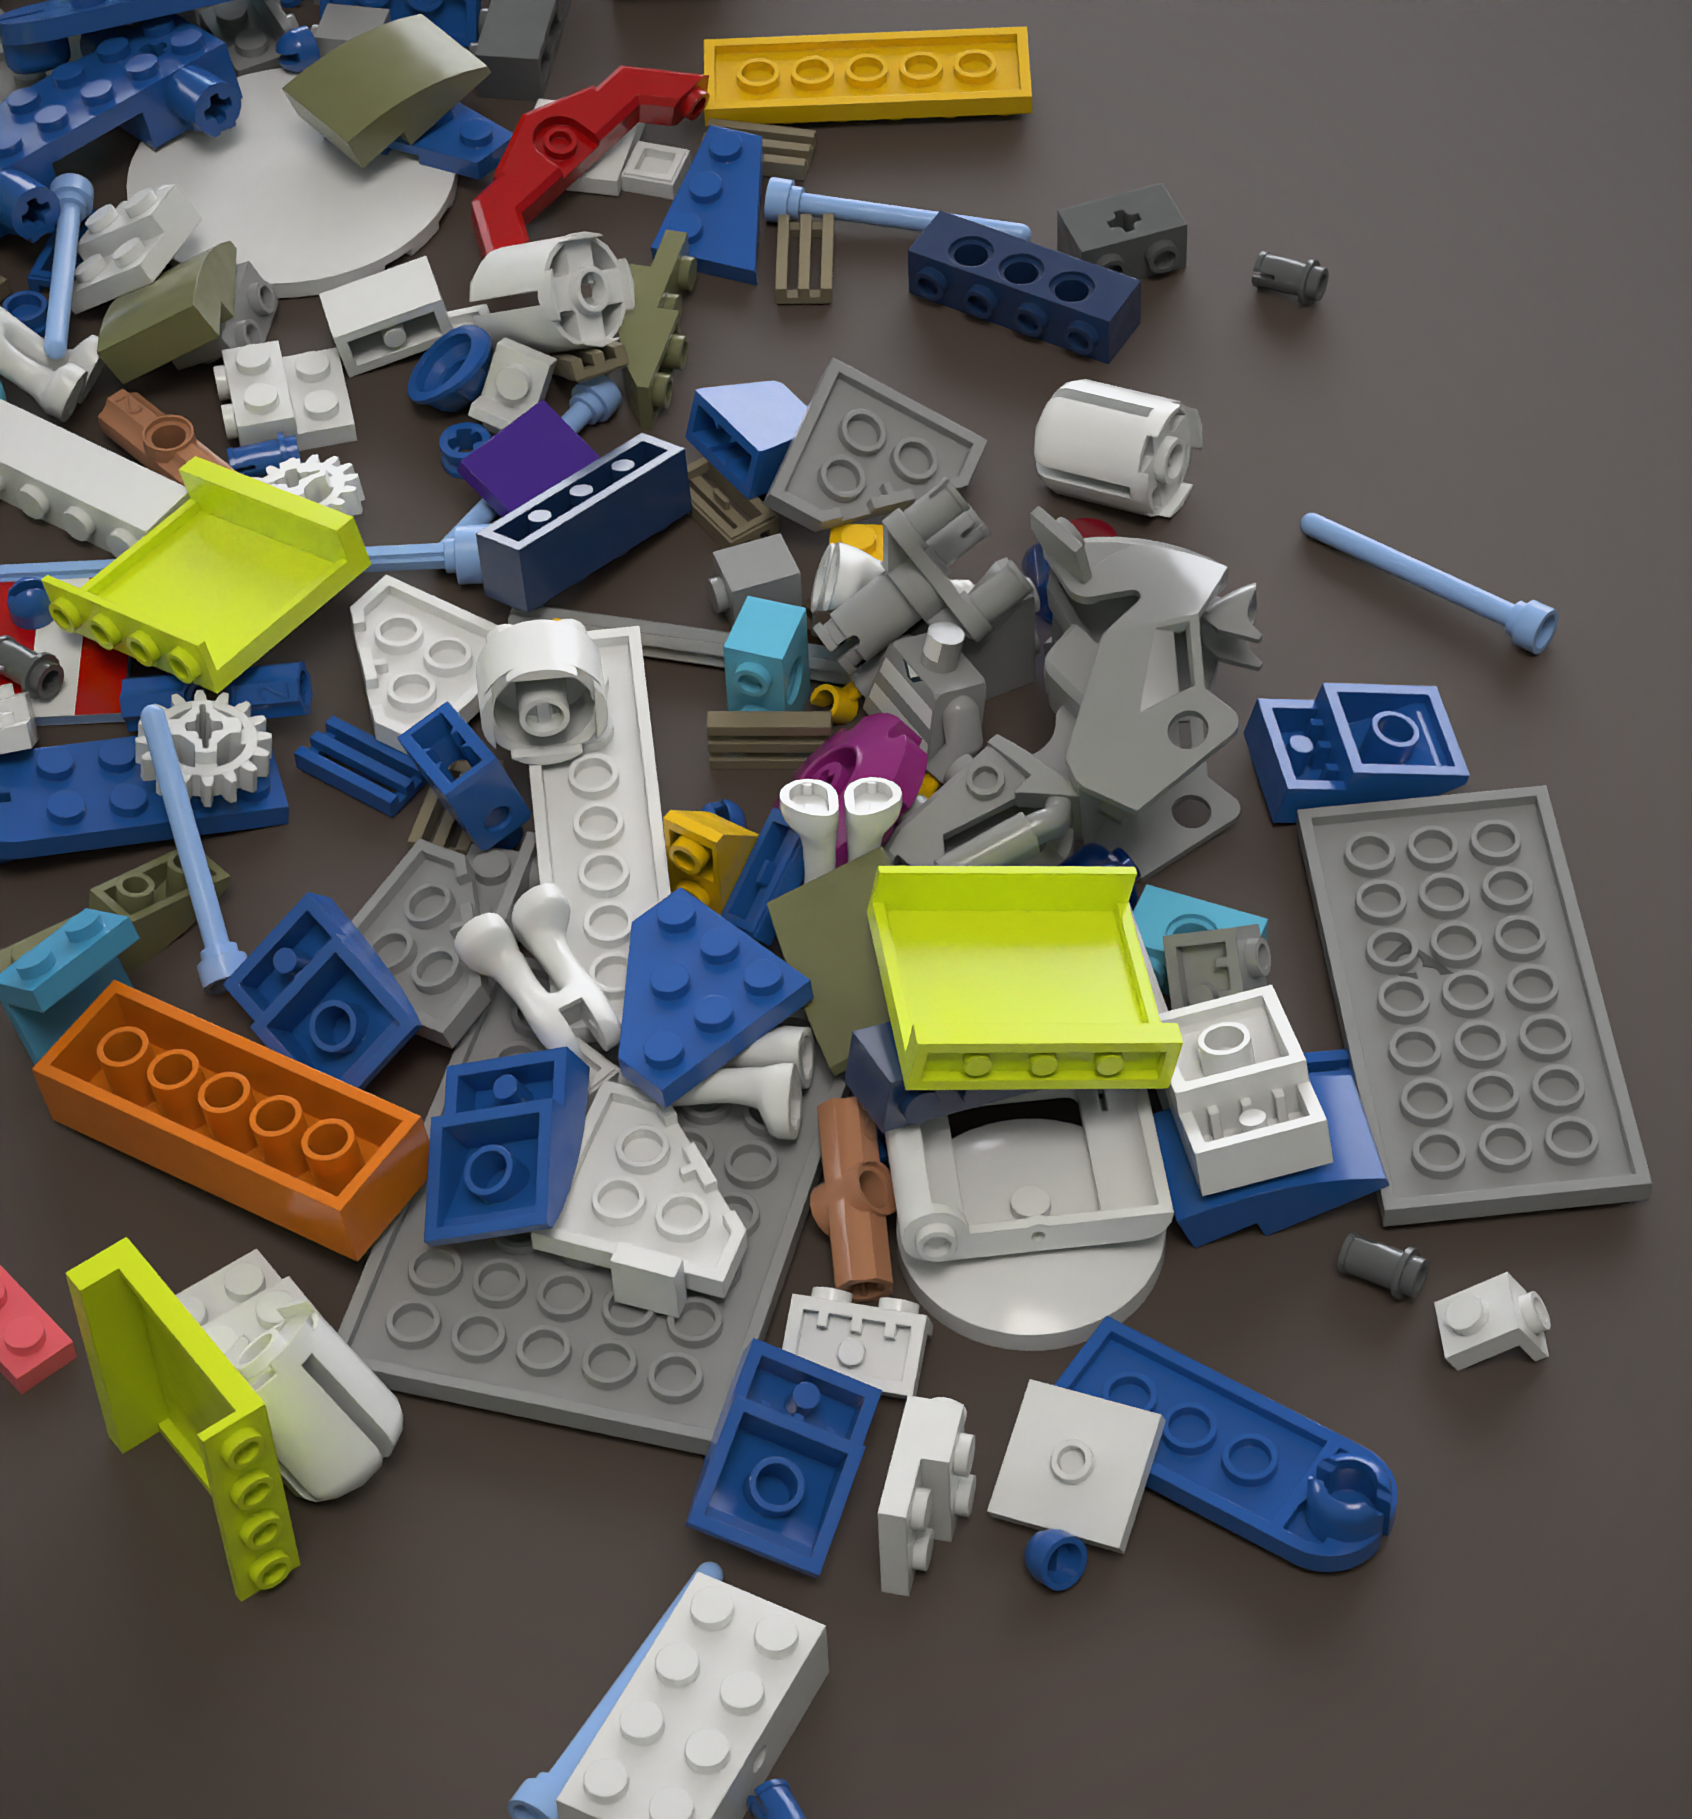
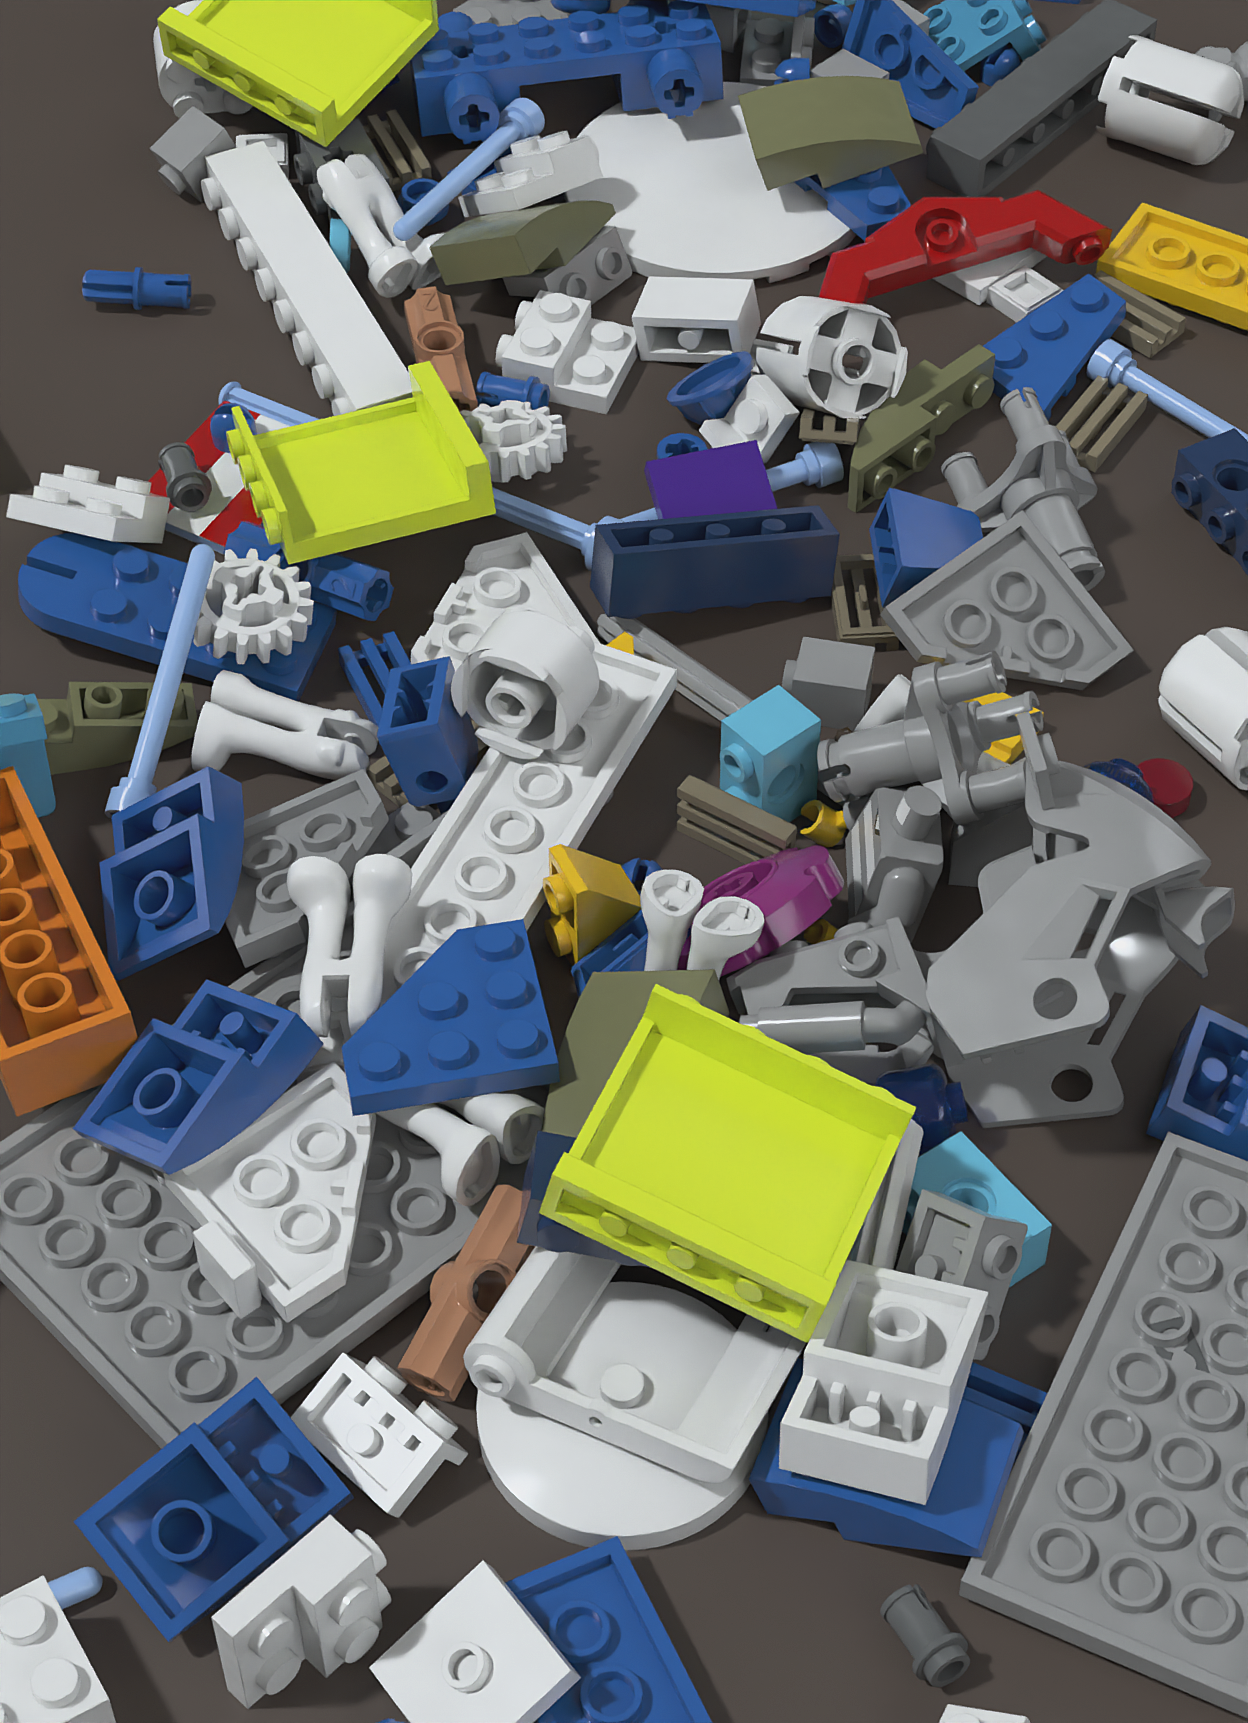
camera: 30 degrees right, 0 degrees up
(293, 845) = (316, 741): none -> white piece
(811, 336) = (1040, 481): none -> light grey wheel

